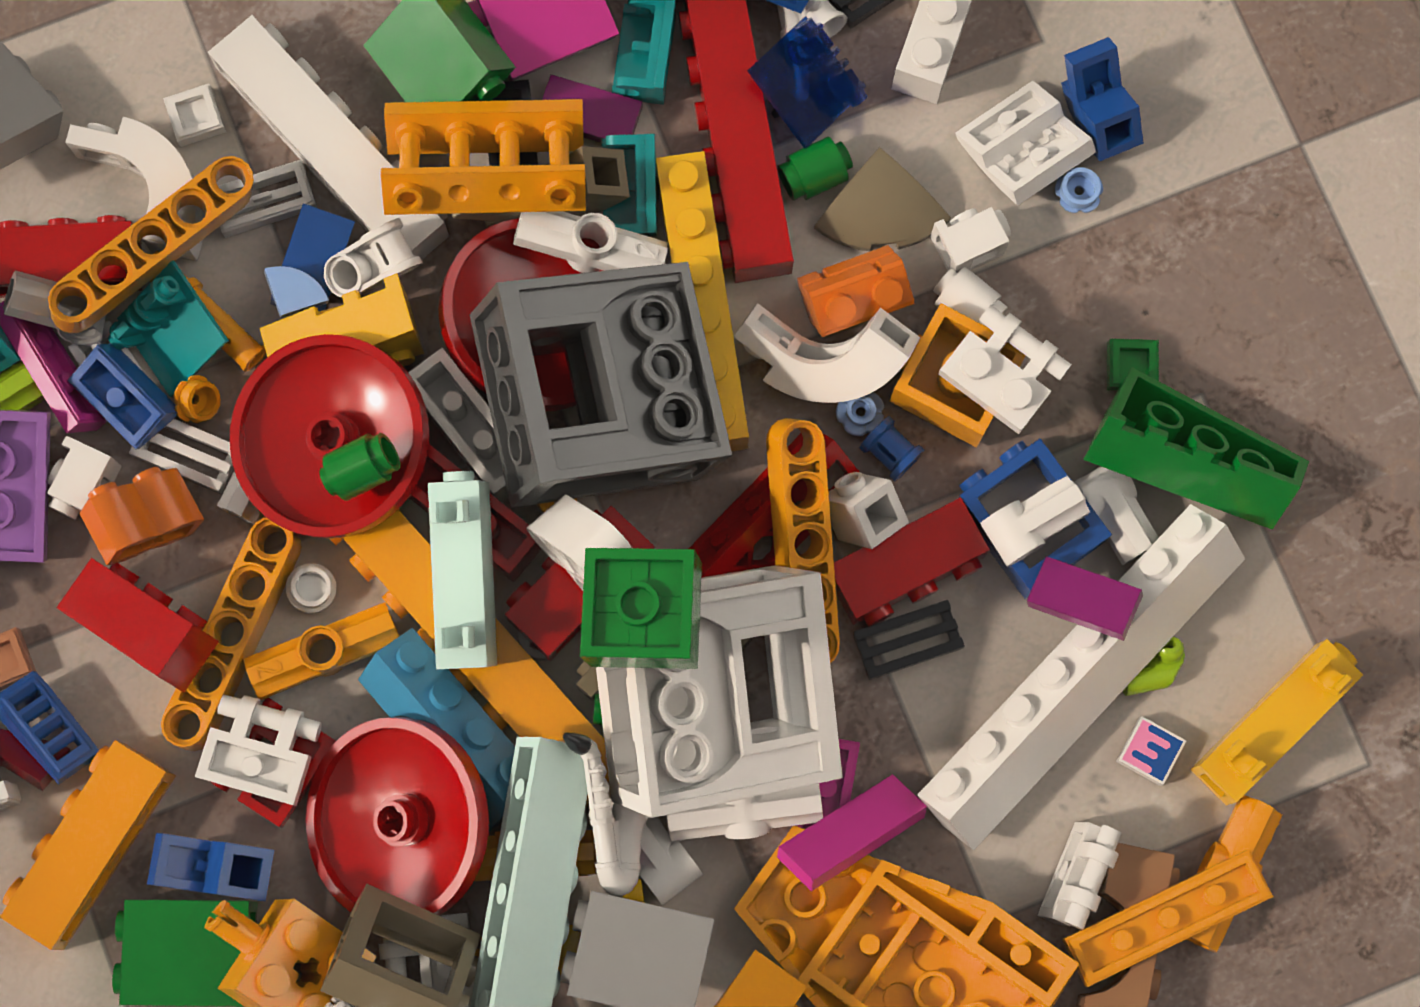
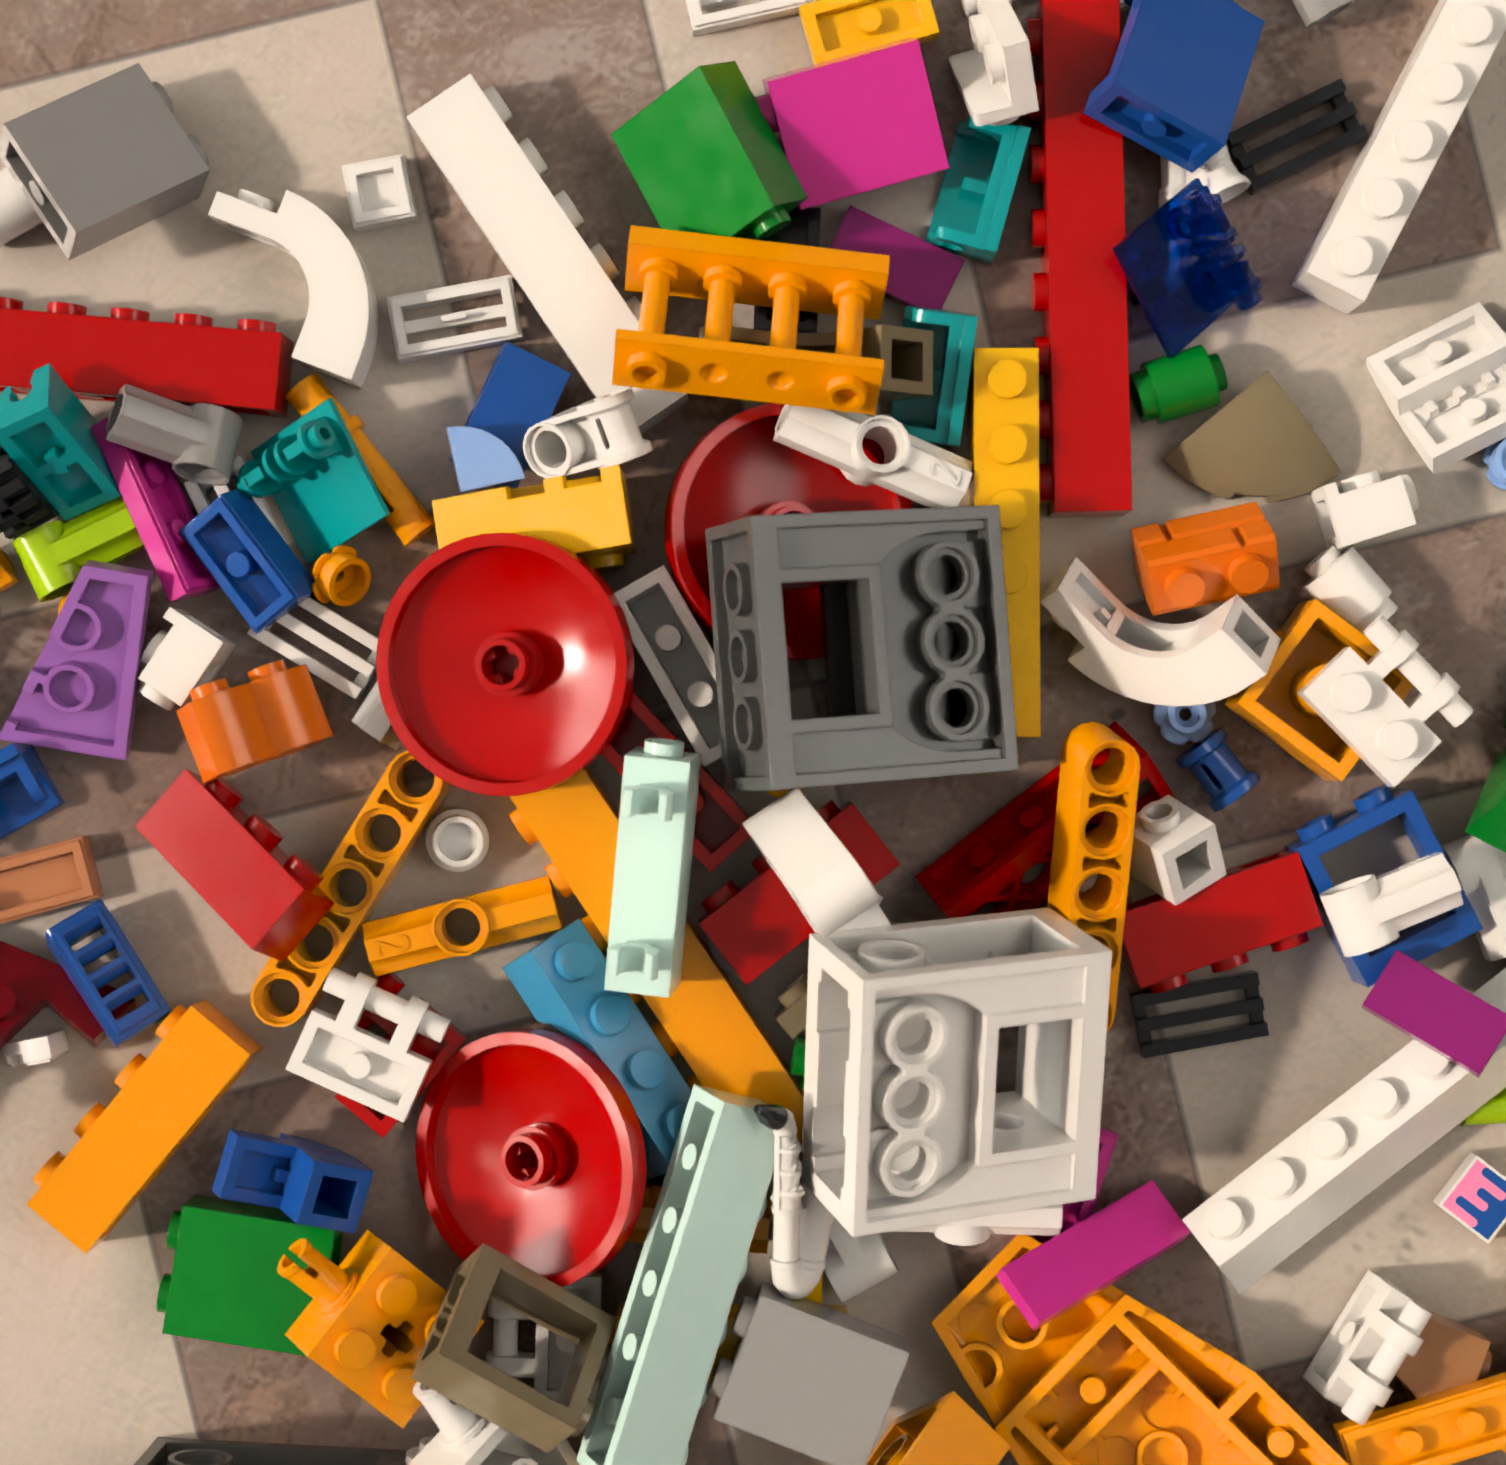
camera: 10 degrees right, 10 degrees up
(141, 266) = (328, 351): light orange beam -> none
(359, 466) = (539, 717): green brick -> none
(641, 608) = (881, 993): green container -> none

